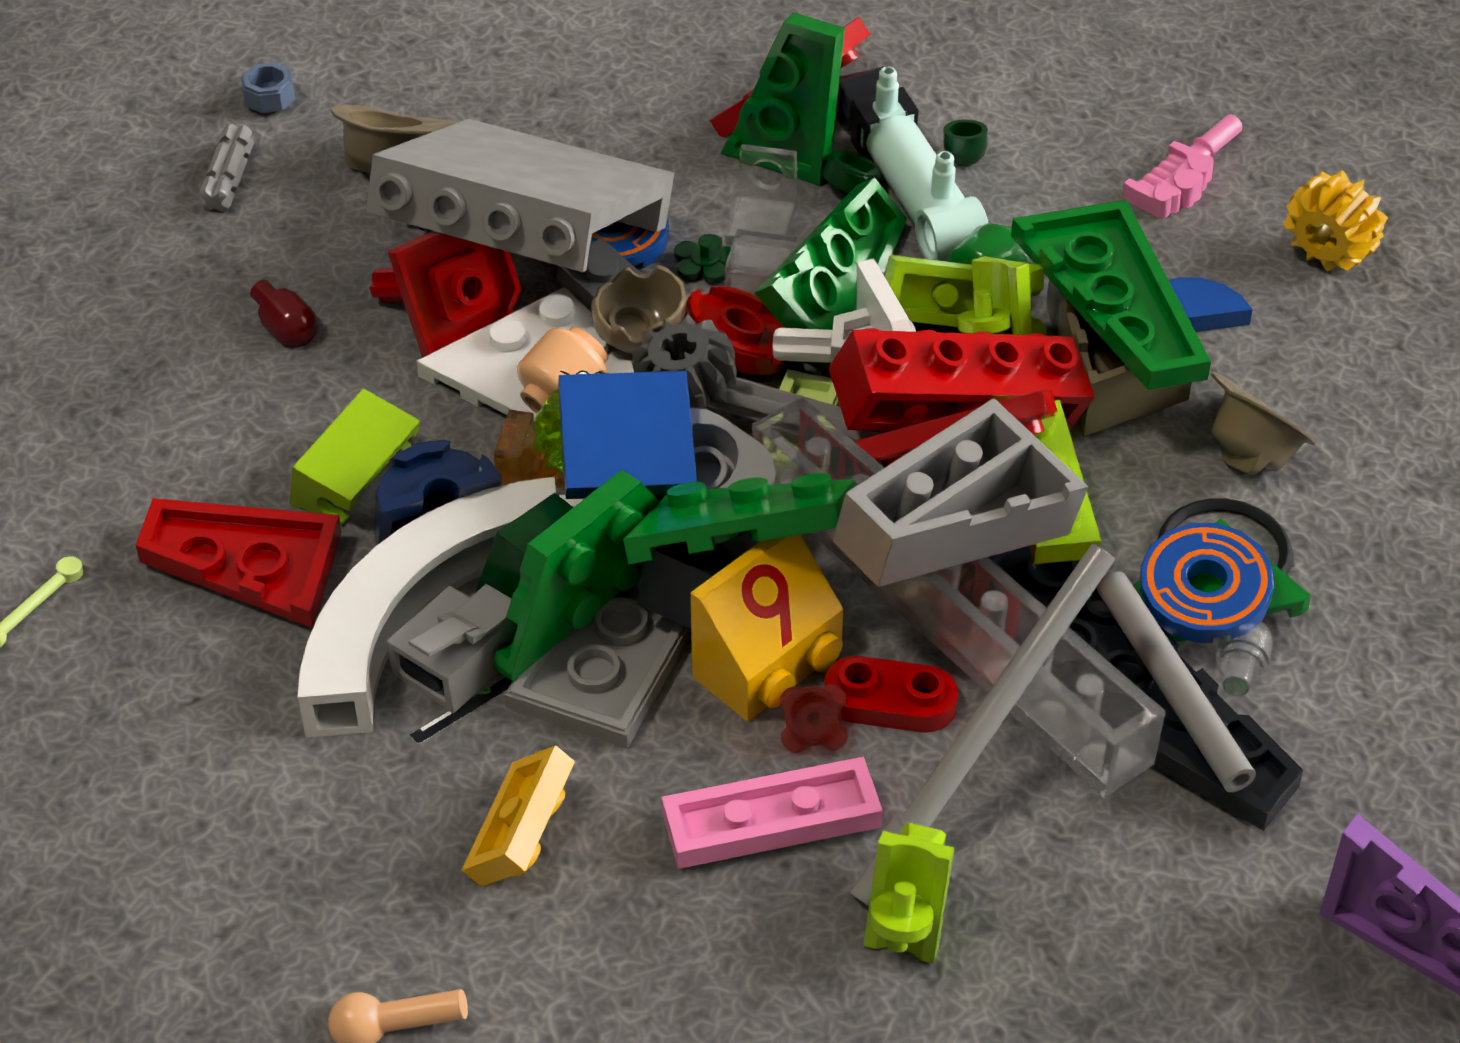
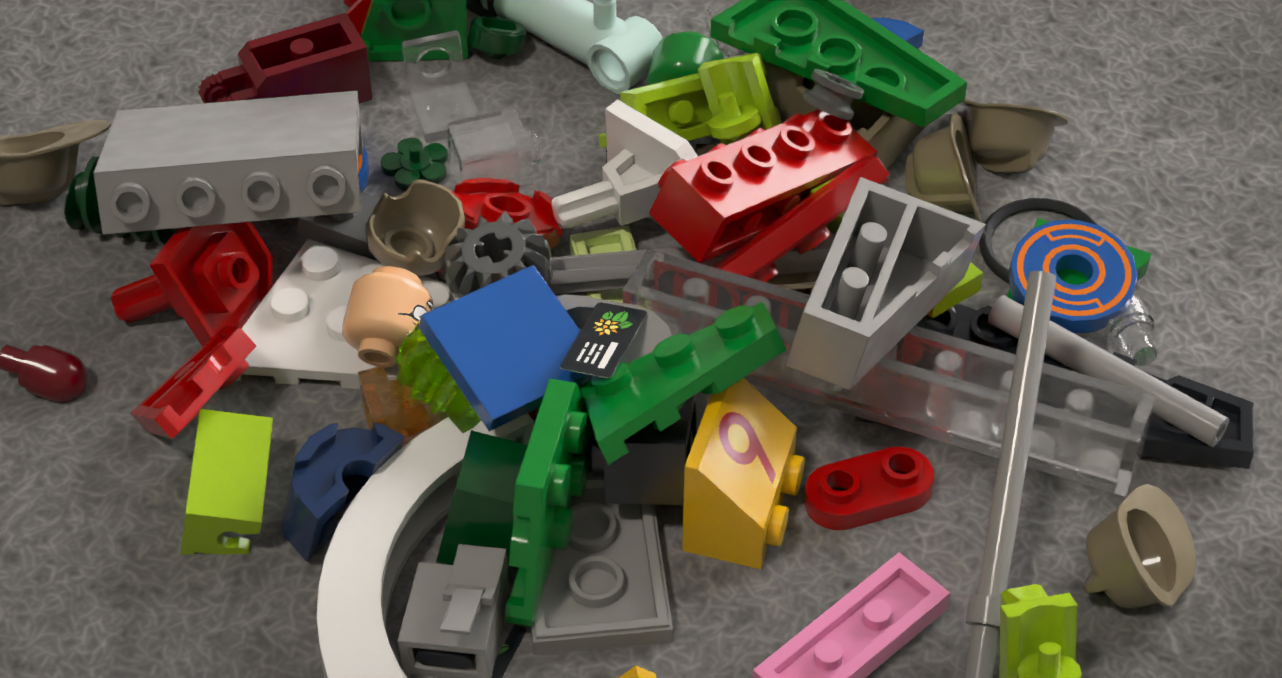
camera: 30 degrees left, 0 degrees up
(244, 552) = (178, 619): red wing -> none
(407, 358) = (195, 382): none -> red wing
(651, 133) = (296, 62): none -> dark red hinge
(705, 459) = (603, 340): none -> black sticker
(799, 704) = (827, 519): clear red plate -> none
(822, 271) = (555, 126): green wing -> none
(1073, 326) = (832, 94): none -> dark grey bush
(1093, 853) = (1141, 551): none -> dark tan piece
(1169, 447) = (944, 170): none -> dark tan piece

